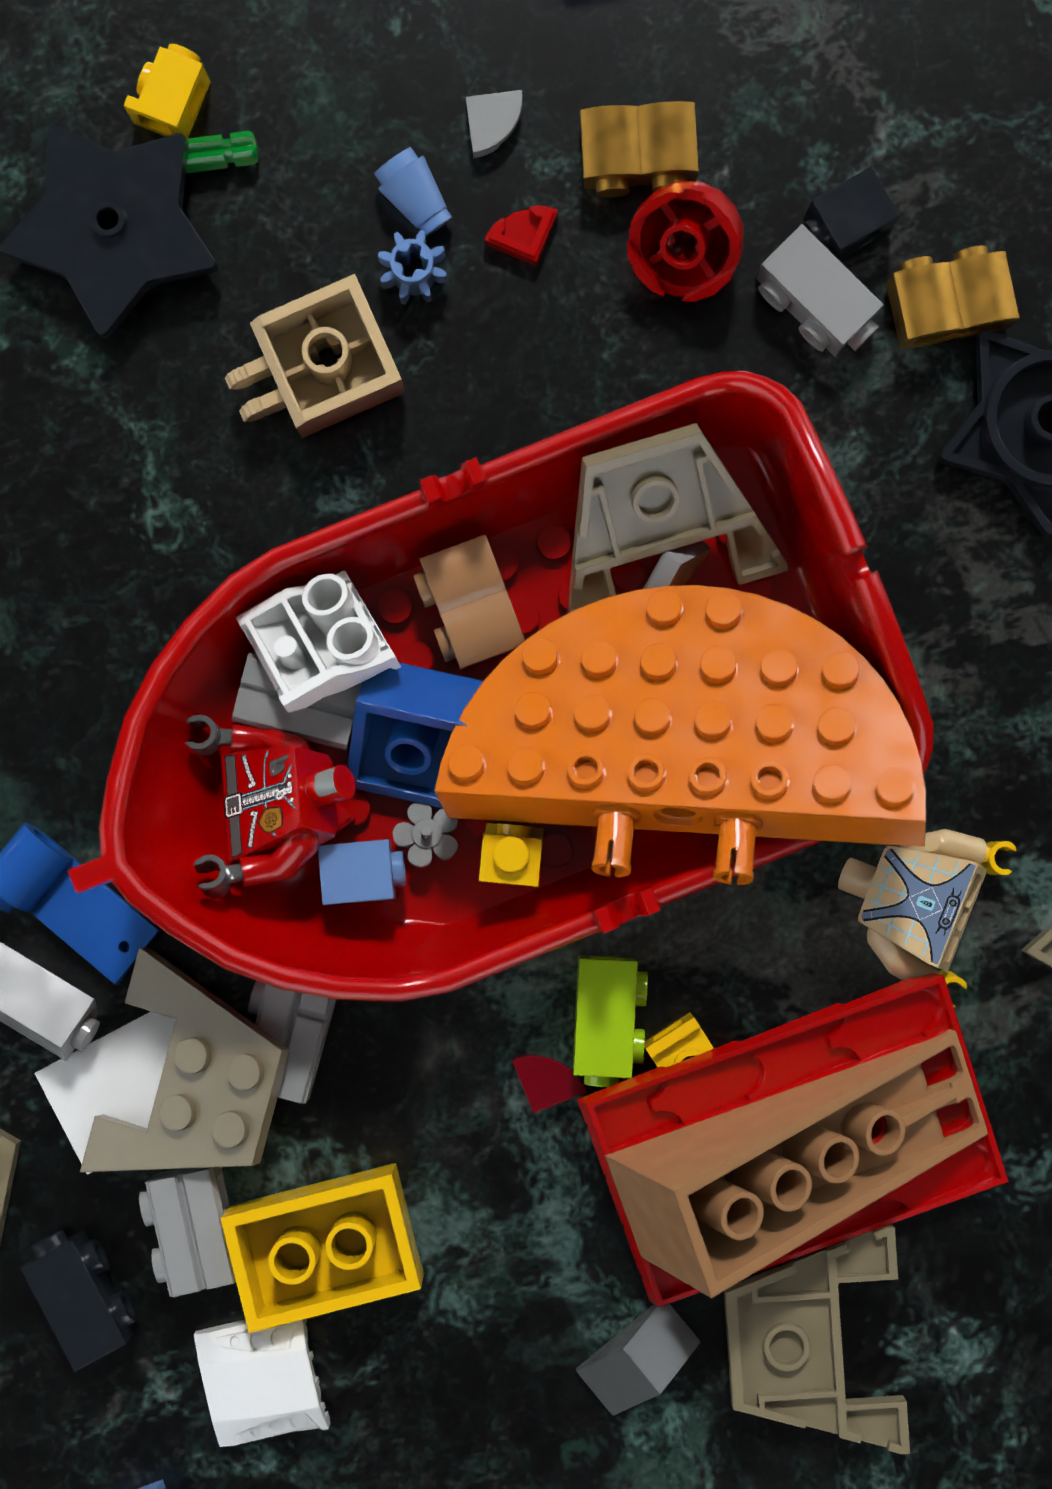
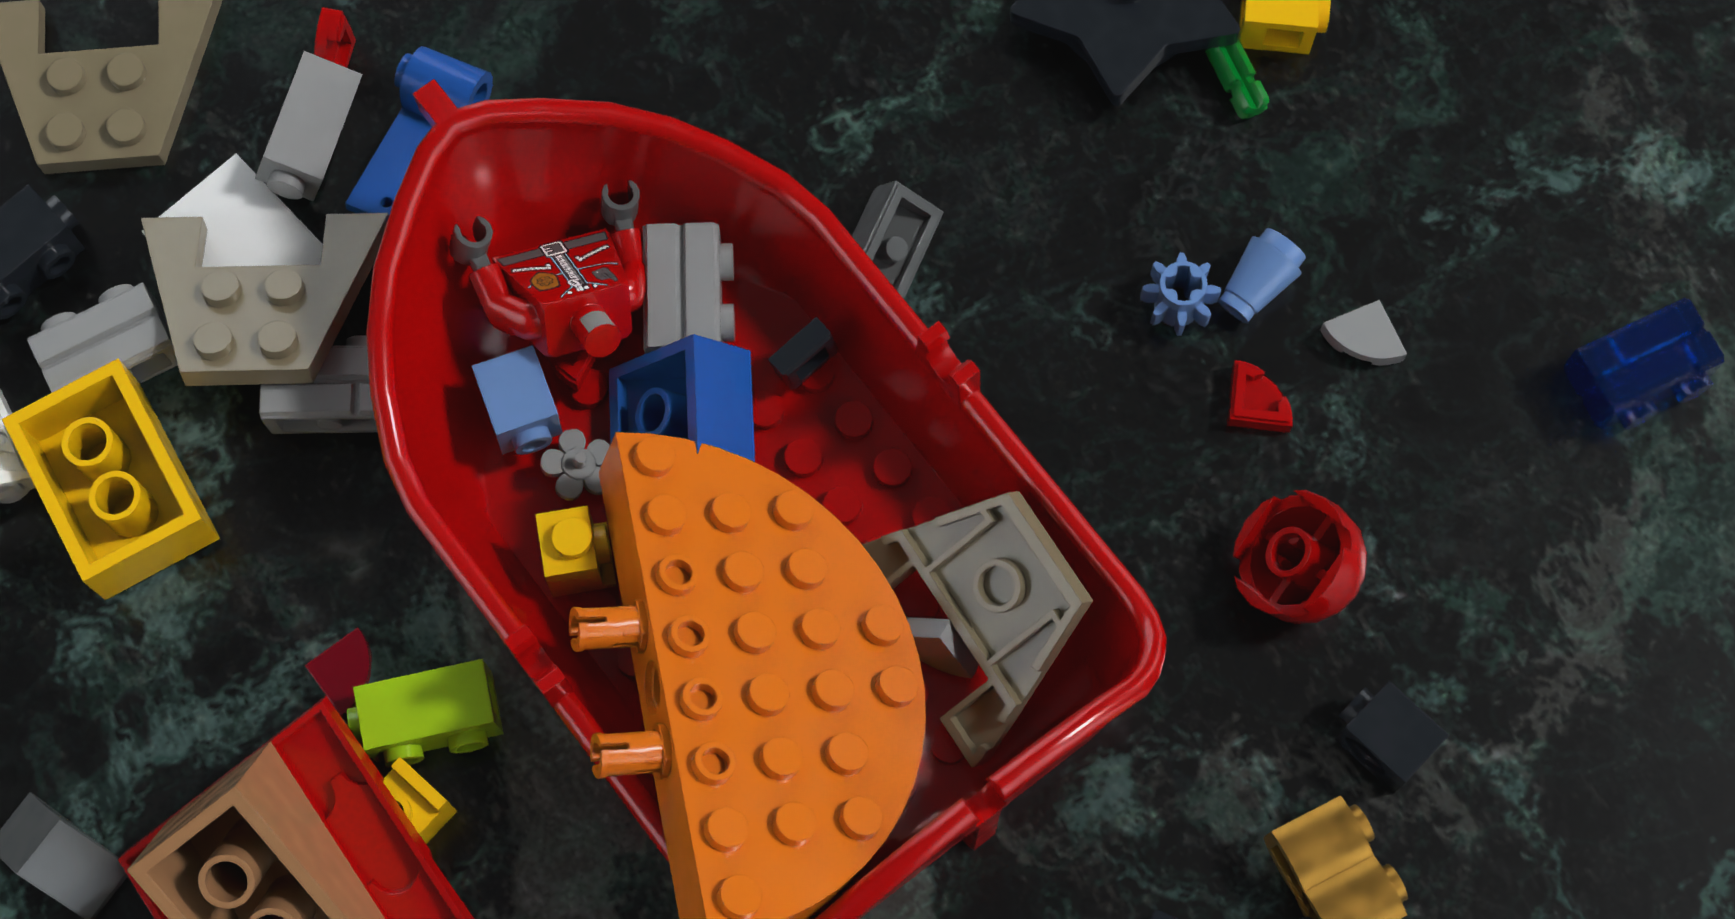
camera: 80 degrees right, 15 degrees down
(282, 503) = (897, 232): none -> dark grey slope
(291, 344) = (1057, 195): tan hinge -> none
(316, 640) = (749, 285): white slope -> none
(386, 610) = (804, 354): none -> black tile
(470, 602) = (838, 437): medium nougat brick -> none
(638, 146) = (1387, 488): pearl gold brick -> none
(818, 293) = (1294, 726): light grey brick -> none

